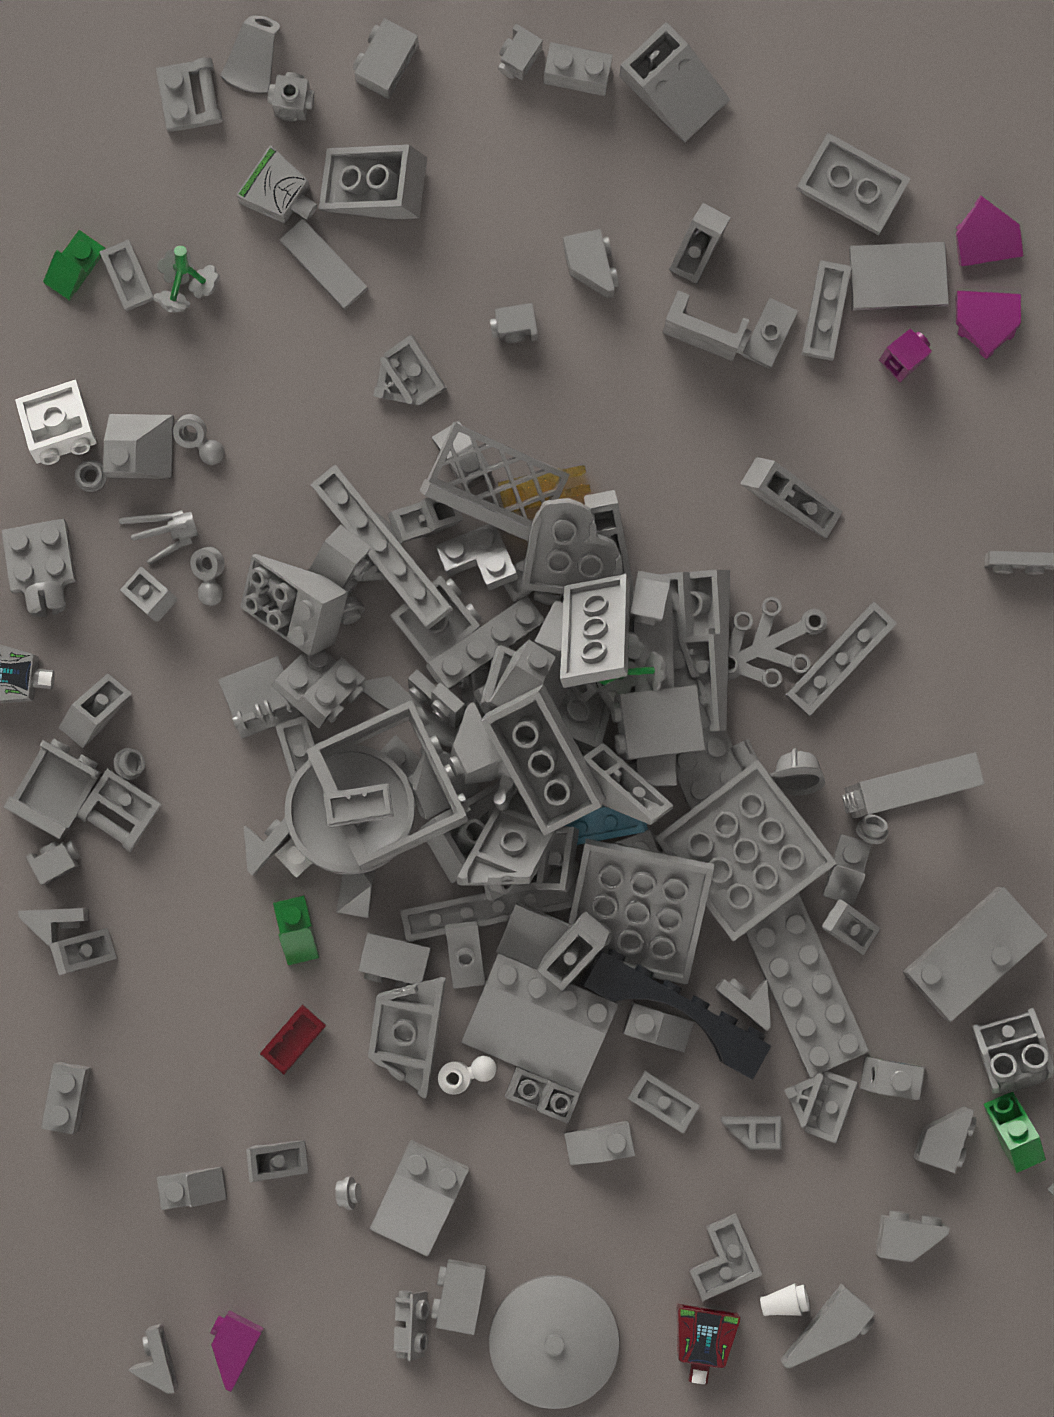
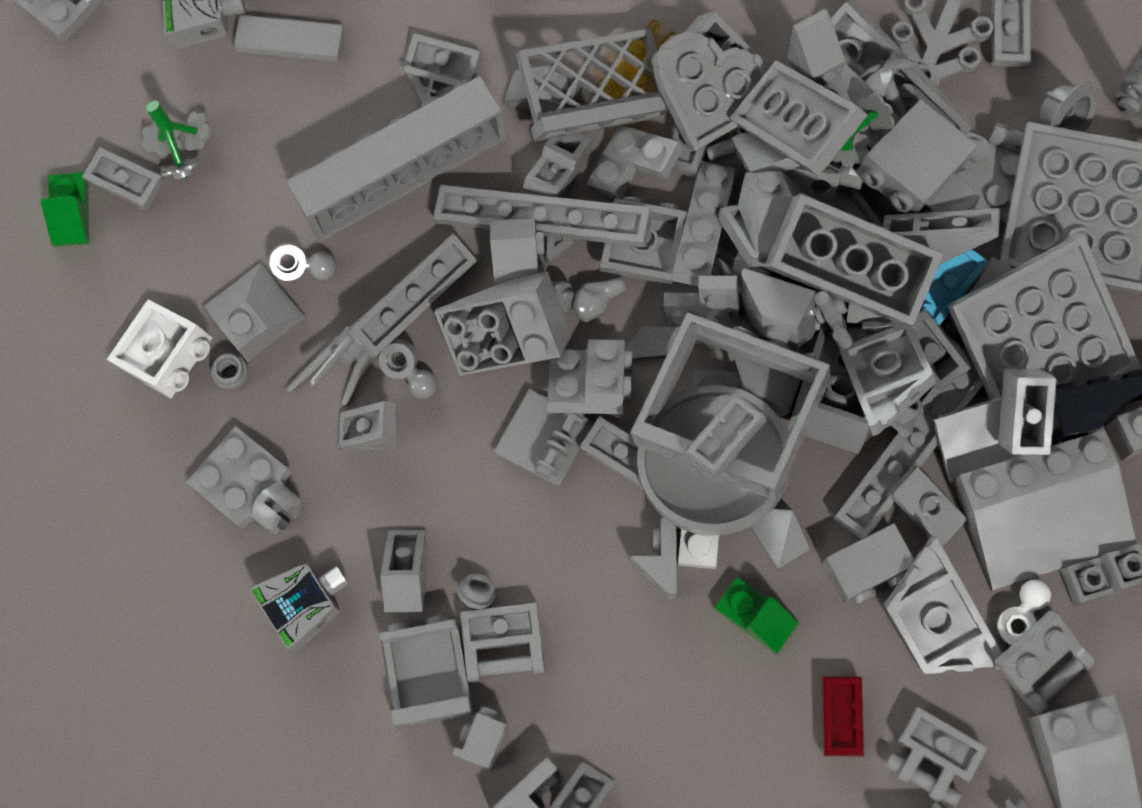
camera: 30 degrees left, 10 degrees down
(251, 528) = (411, 295): none -> light grey plate
(319, 423) = (398, 158): none -> light grey brick
(338, 1109) = (942, 746): none -> light grey plate
(371, 630) = (594, 297): none -> light grey animal
(449, 1104) = (1036, 653): none -> light grey plate
(686, 648) = (881, 81): none -> light grey plant

